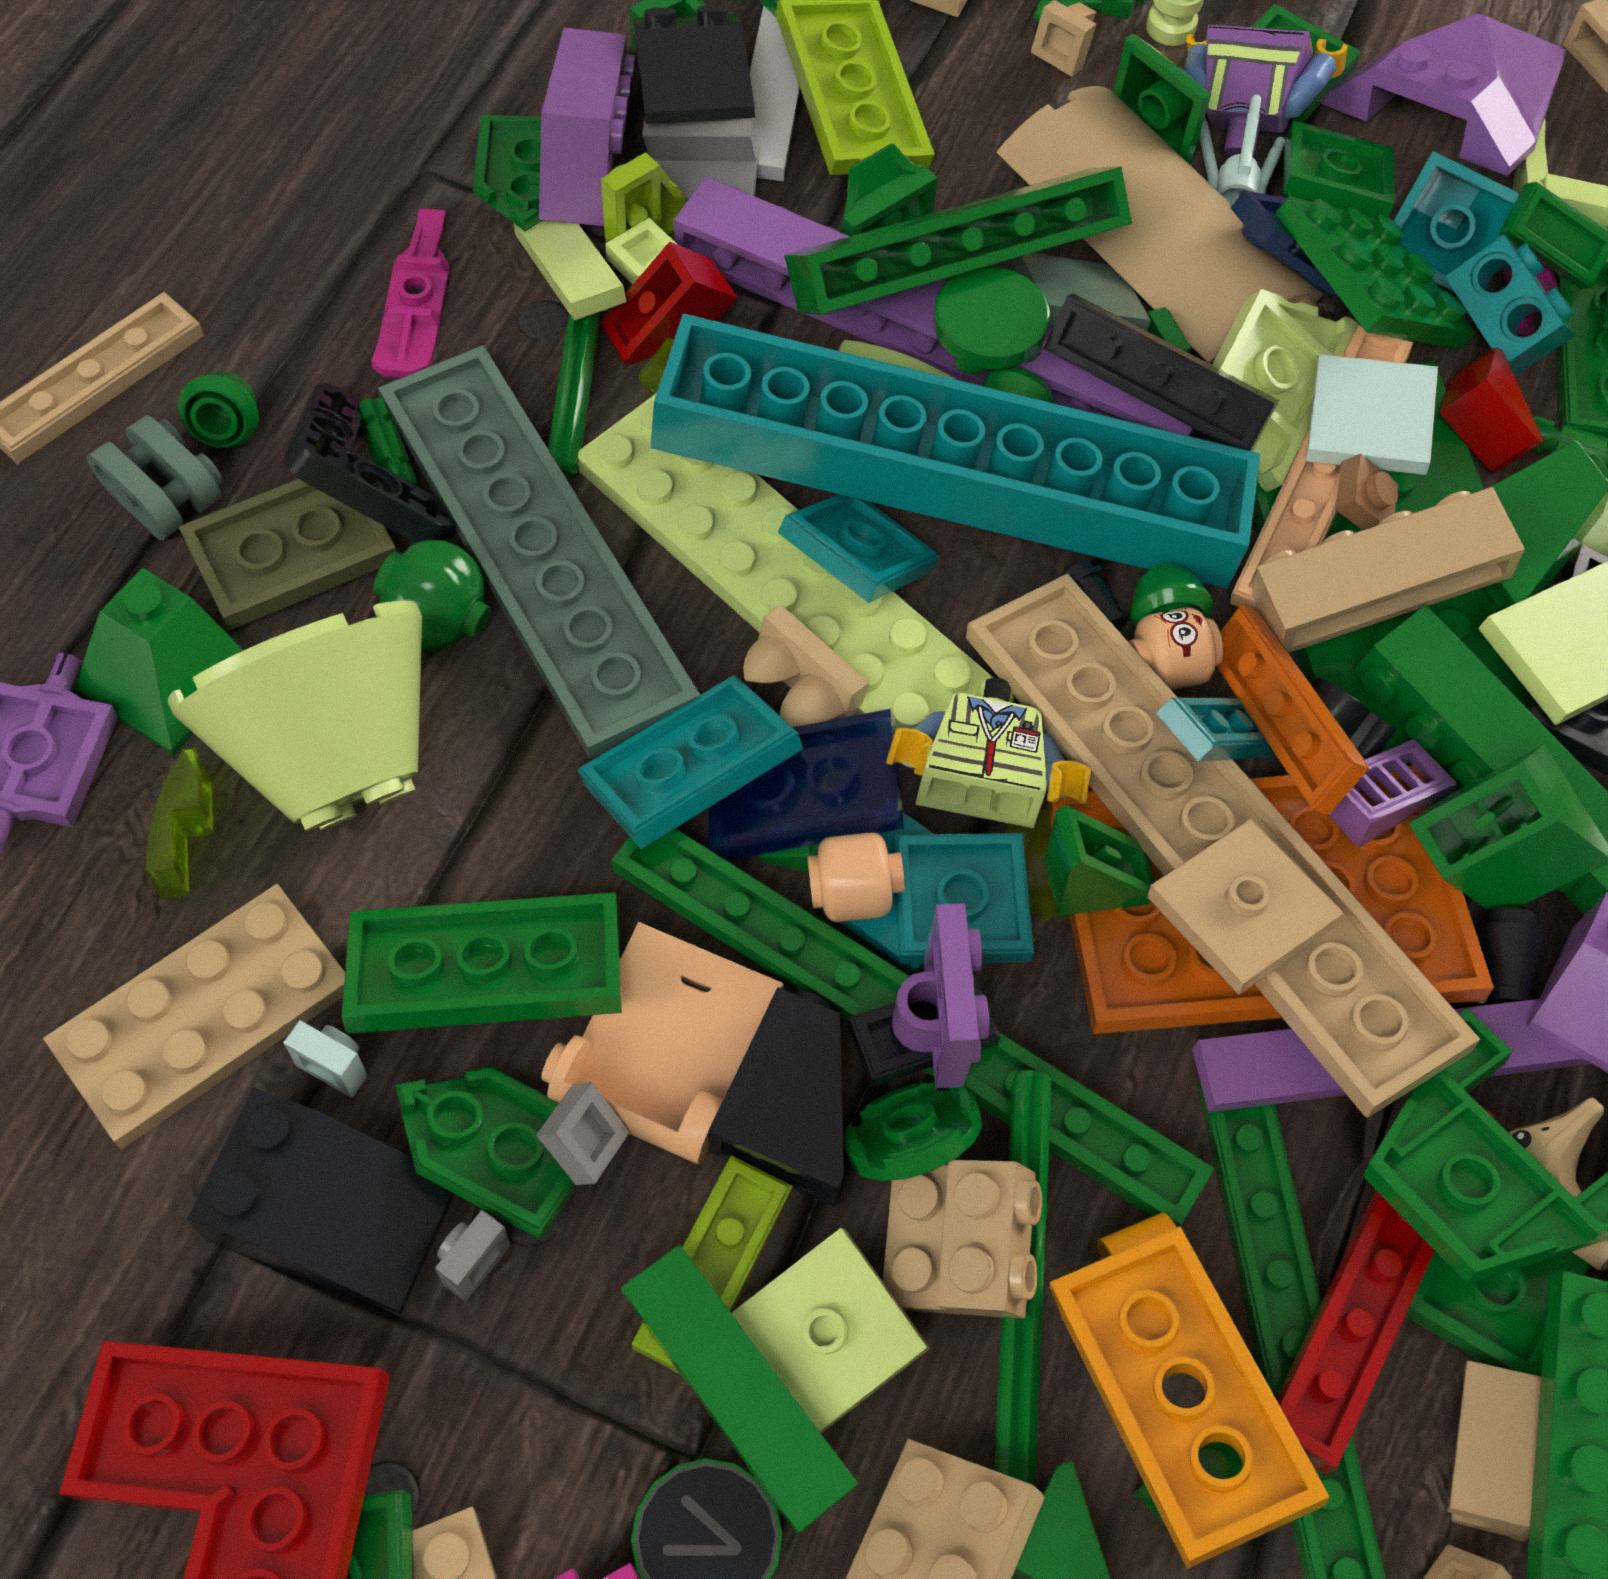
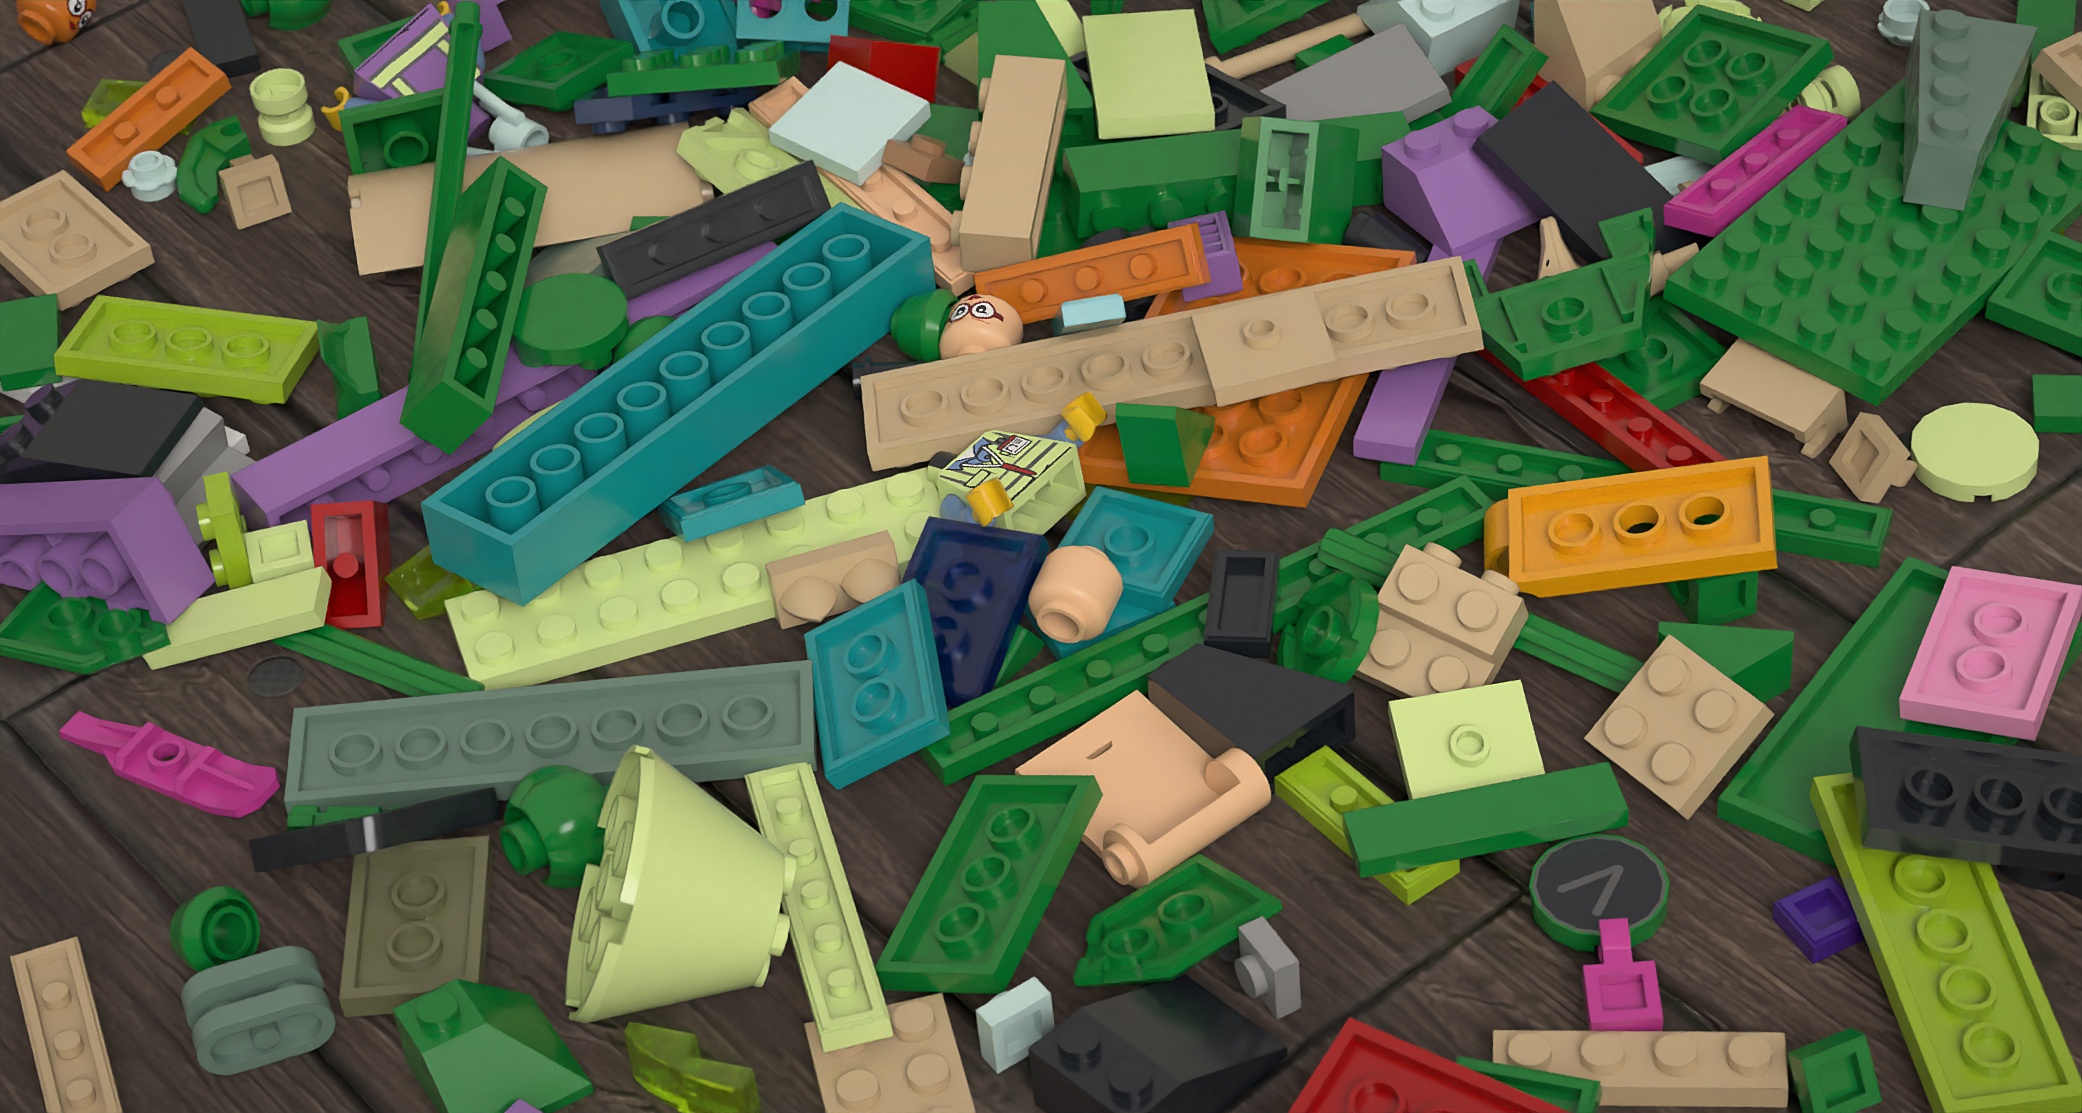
camera: 55 degrees left, 20 degrees down
(407, 834) = (821, 910): none -> yellowish green tile
(583, 1133) = (1205, 844): light grey plate -> none
(948, 983) = (1241, 537): medium lavender plate -> none
(1170, 116) = (451, 150): none -> green piece

